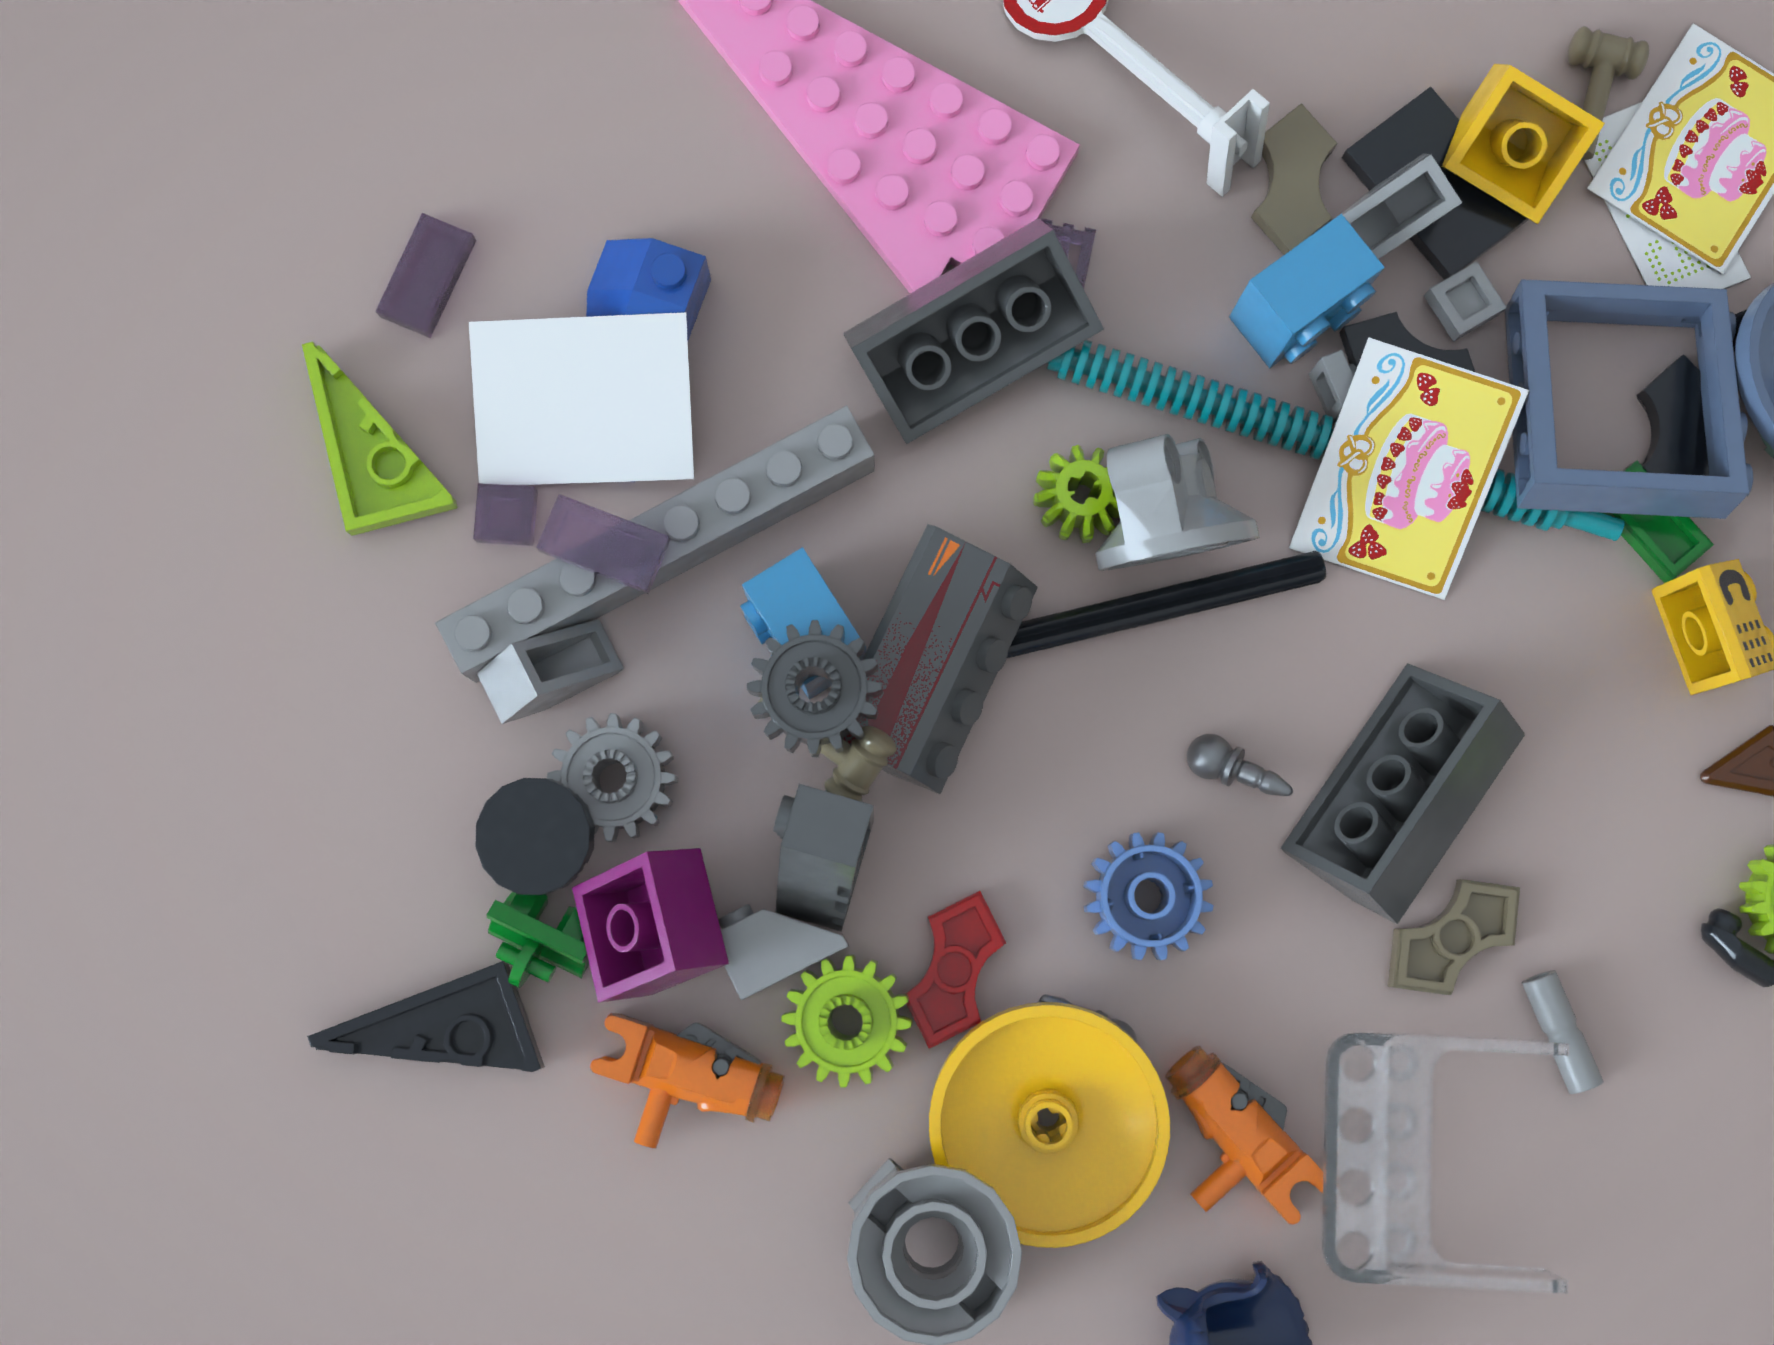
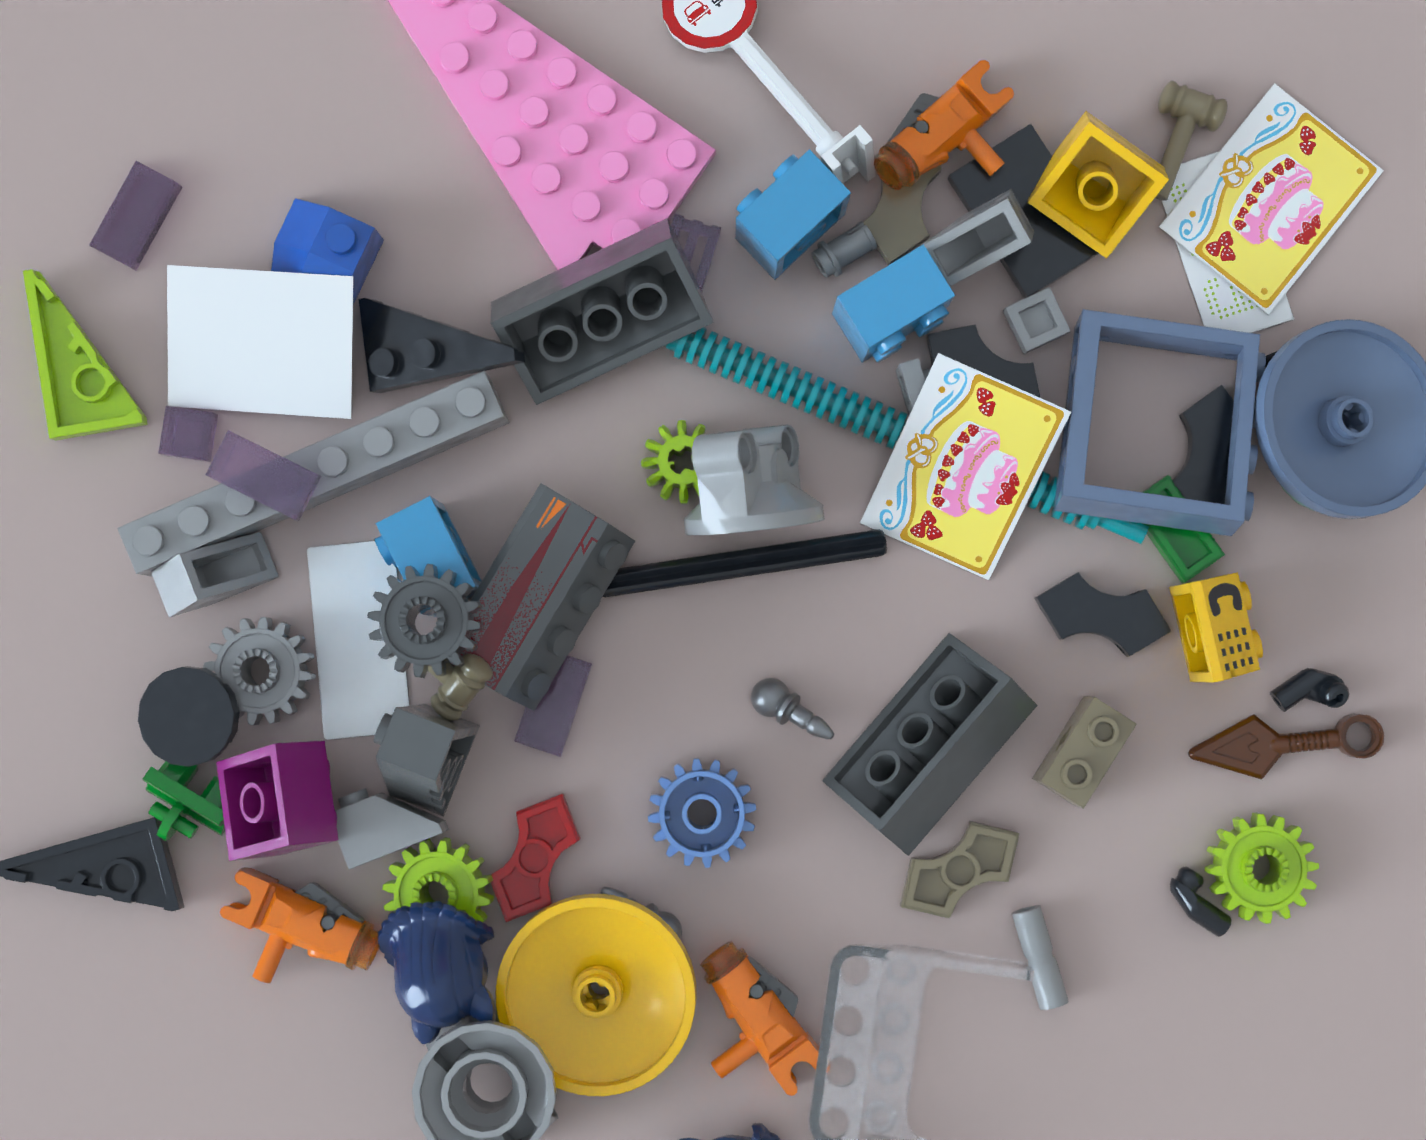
camera: 10 degrees right, 5 degrees up
(722, 756) = (352, 677): none -> white sticker
(762, 393) = (414, 350): none -> black wing
(858, 1105) = (437, 965): none -> dark blue hair
(958, 809) = (553, 718): none -> clear purple tile
(1178, 200) = (790, 212): none -> dark azure brick
(1226, 250) = (843, 250): none -> light grey pin
(1334, 93) = (939, 126): none -> orange piece
(1586, 783) = (1084, 751): none -> dark tan brick
(1608, 630) = (1125, 620): none -> black tile

